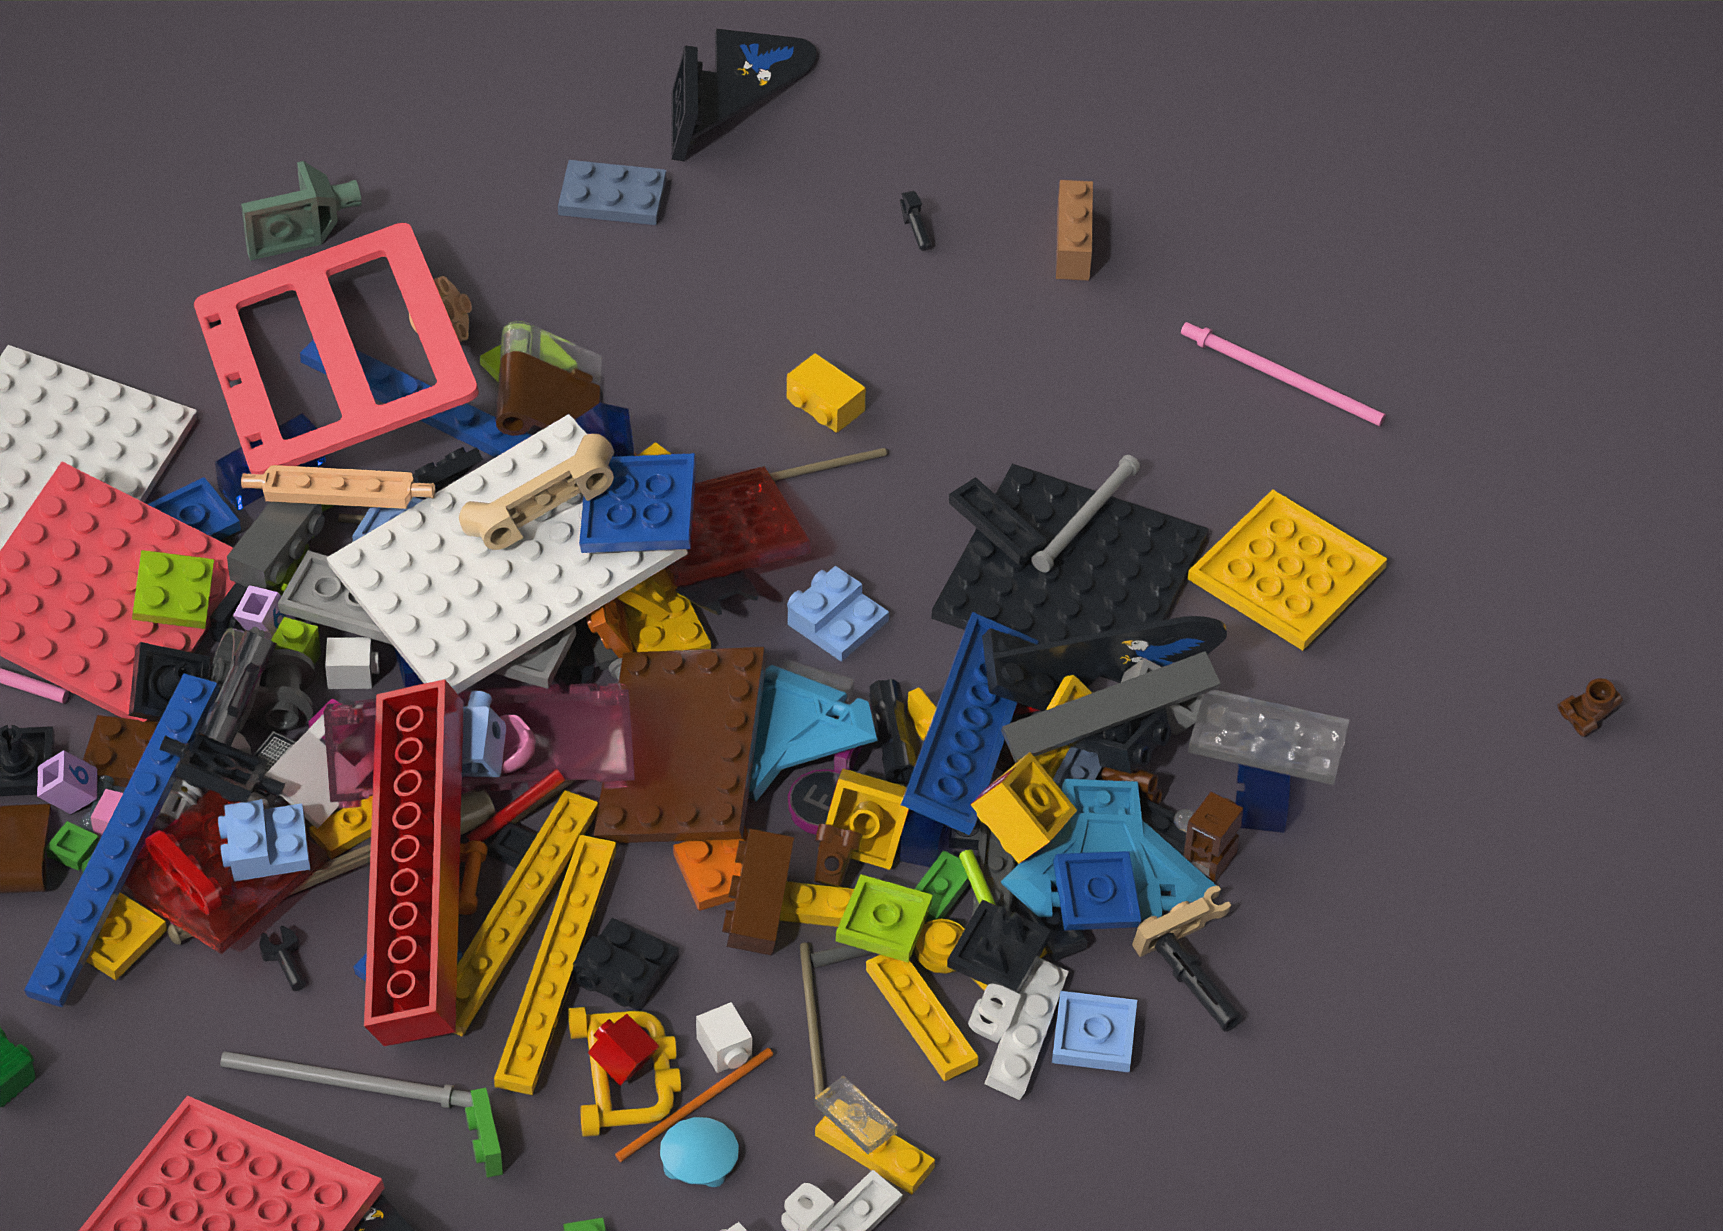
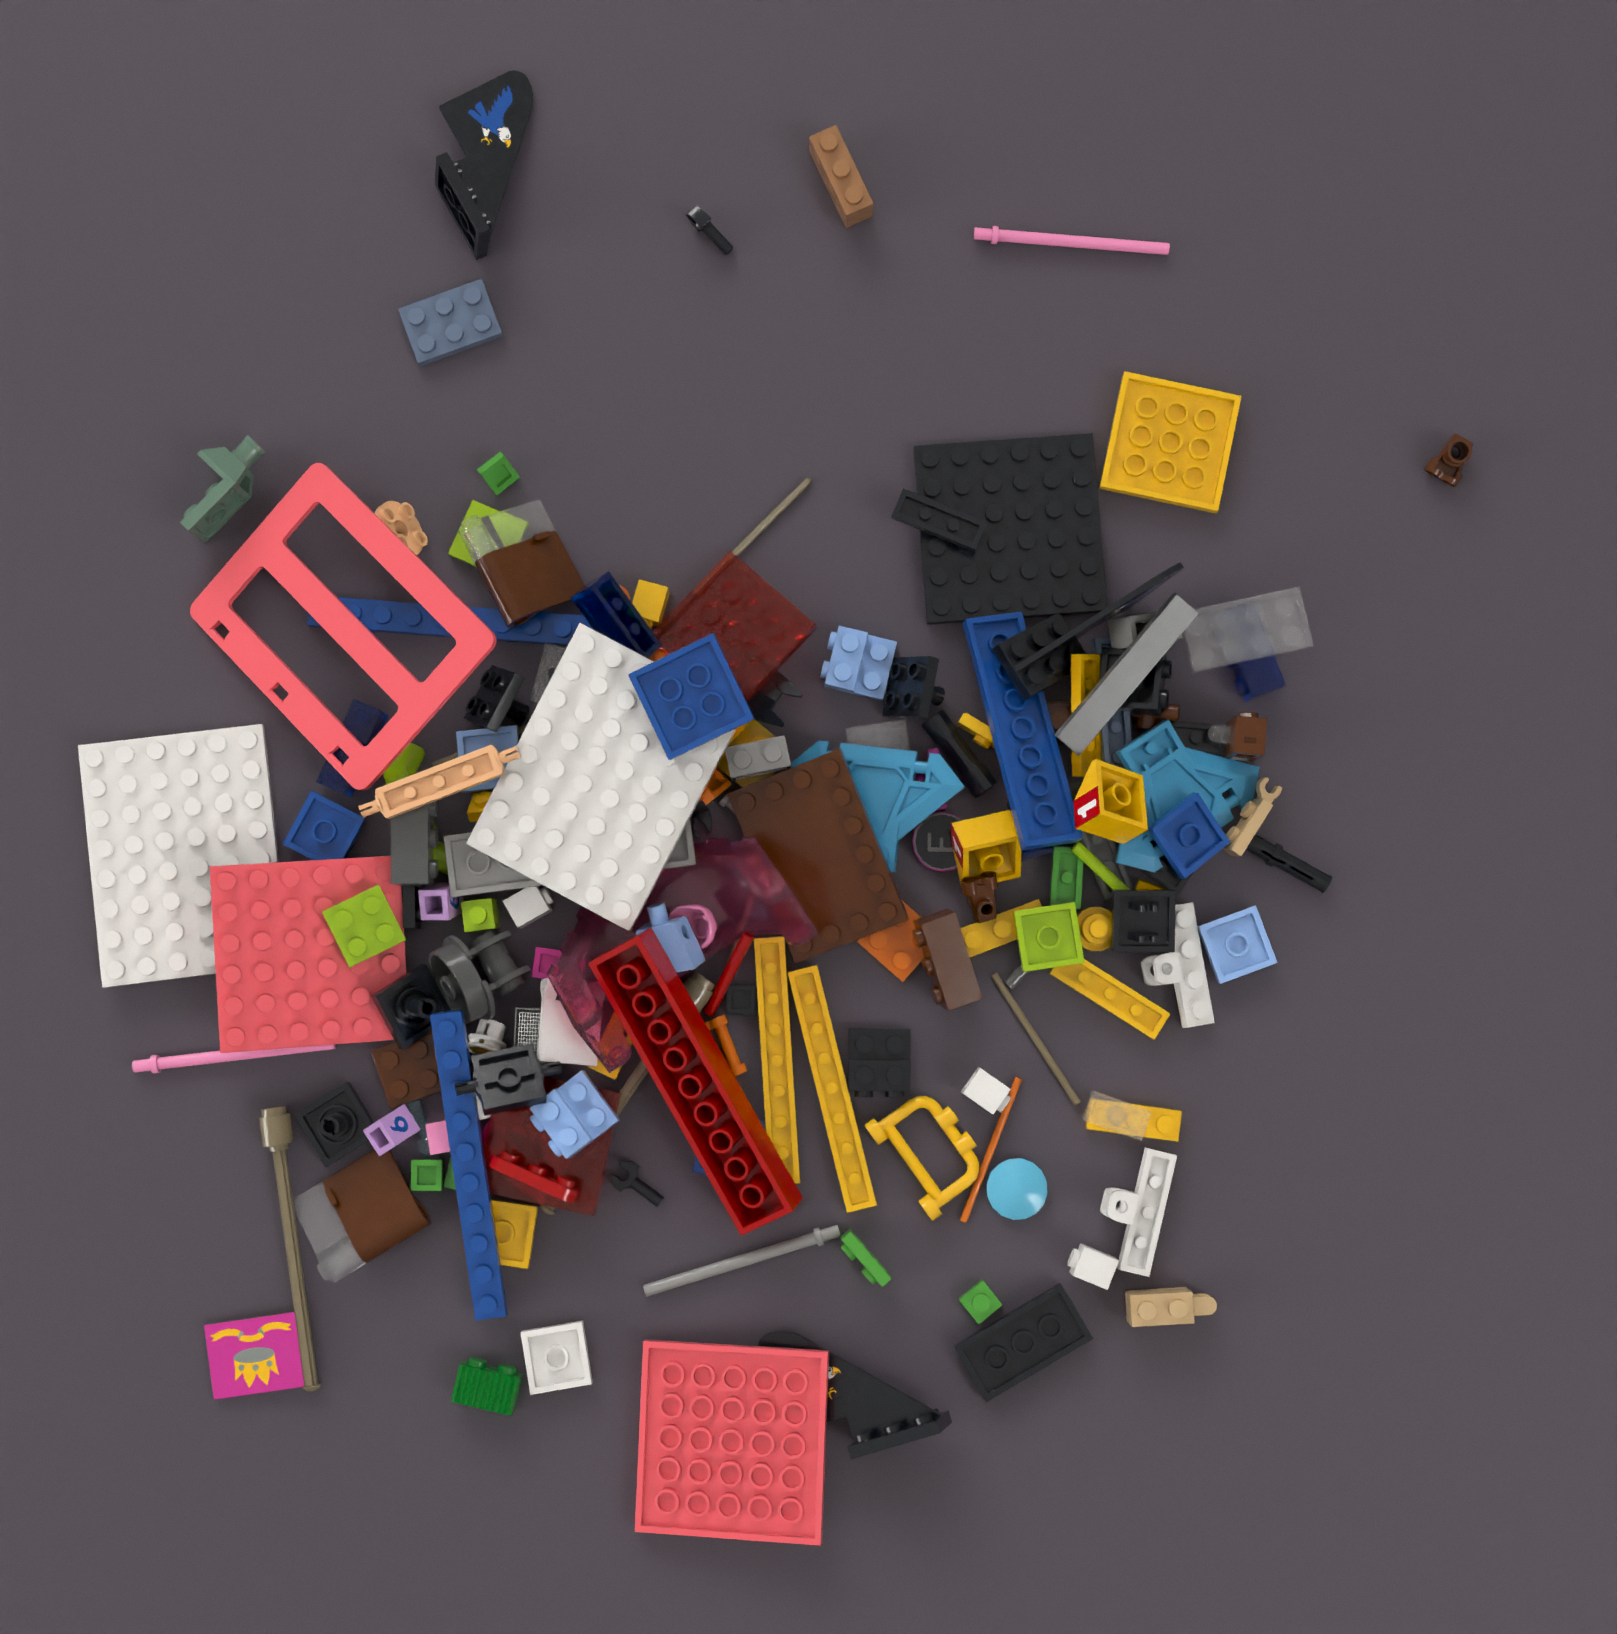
camera: 25 degrees left, 35 degrees up
(83, 1071) = (556, 1357): none -> white plate
(249, 662) = (481, 1010): black axle -> none
(575, 315) = (498, 473): none -> bright green plate
(583, 473) = (641, 701): tan plate -> none
(622, 1048) = (925, 1145): red brick -> none
(673, 626) = (758, 758): none -> light grey brick
(825, 393) = (735, 452): yellow brick -> none
(878, 648) = (912, 688): none -> black plate
(1044, 559) = (1007, 409): light grey bar -> none

